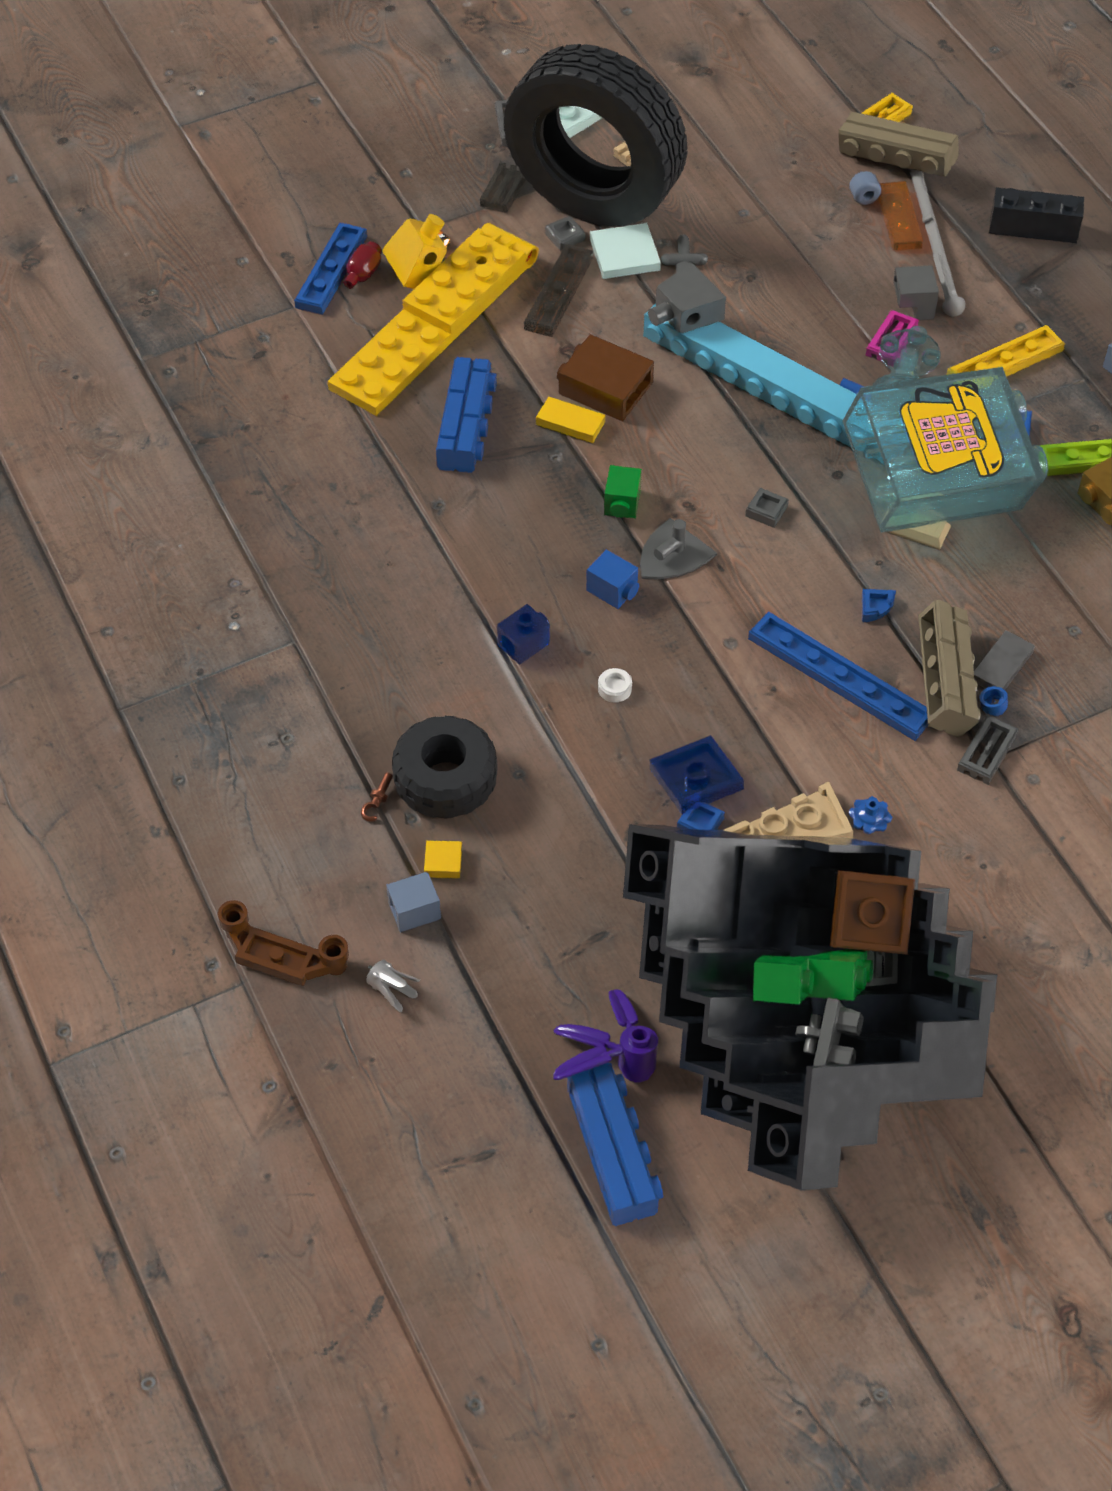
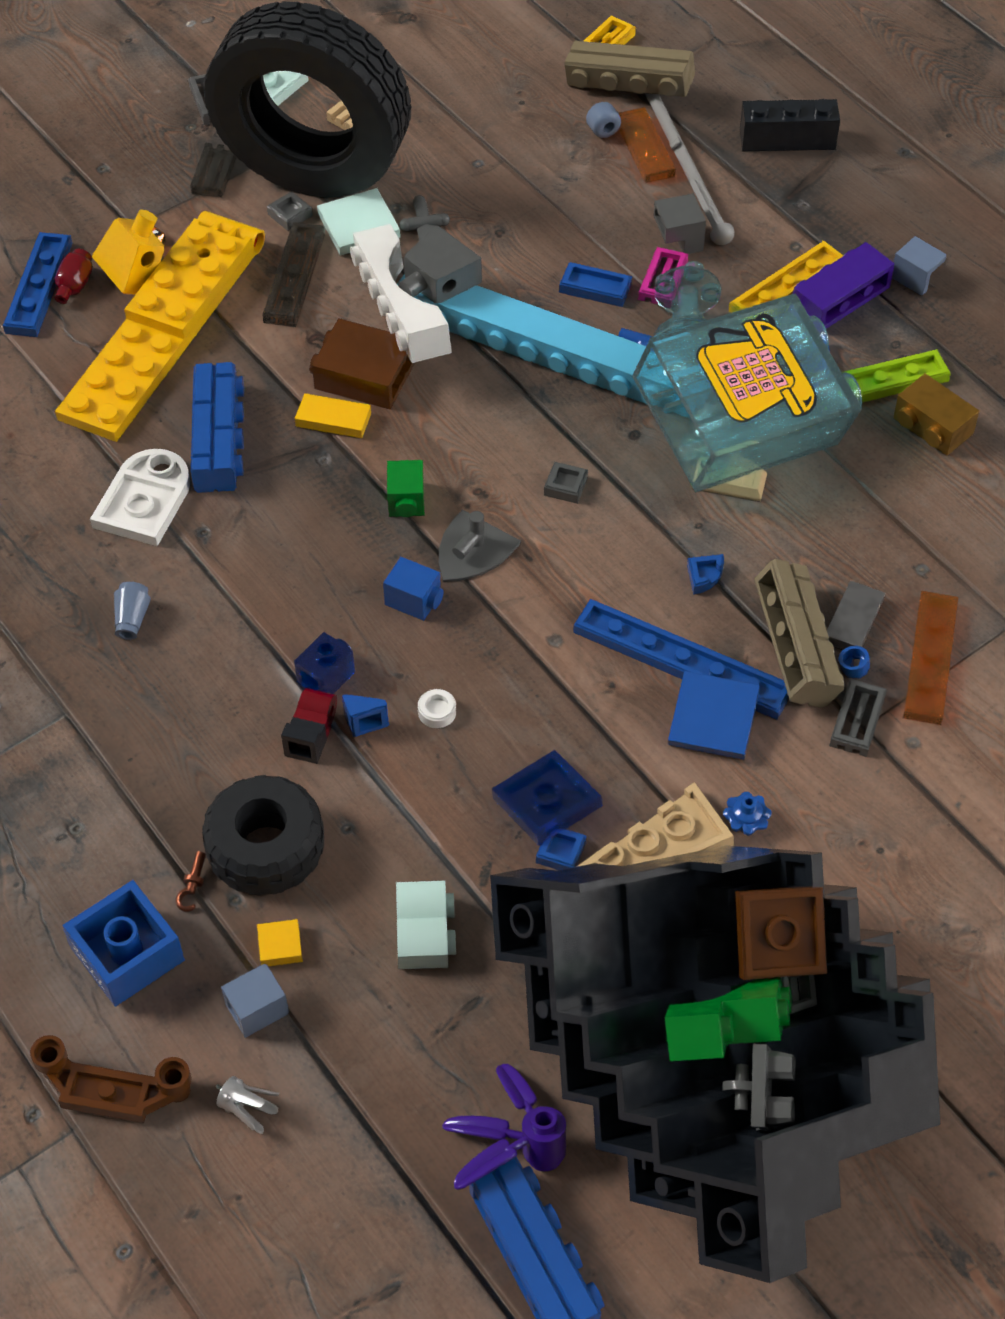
camera: 10 degrees left, 0 degrees up
(311, 836) = (124, 942): none -> blue brick
(363, 560) = (130, 608): none -> sand blue cone
(390, 468) = (142, 499): none -> white tile
(501, 682) = (309, 725): none -> leg
(551, 679) = (364, 714): none -> blue slope
(567, 863) = (423, 925): none -> light aqua brick
(656, 348) = (416, 324): none -> white arch
(828, 336) = (595, 284): none -> blue tile
(858, 727) = (714, 715): none -> blue tile
(1056, 368) = (845, 284): none -> dark purple brick
(1064, 708) = (930, 658): none -> clear orange tile

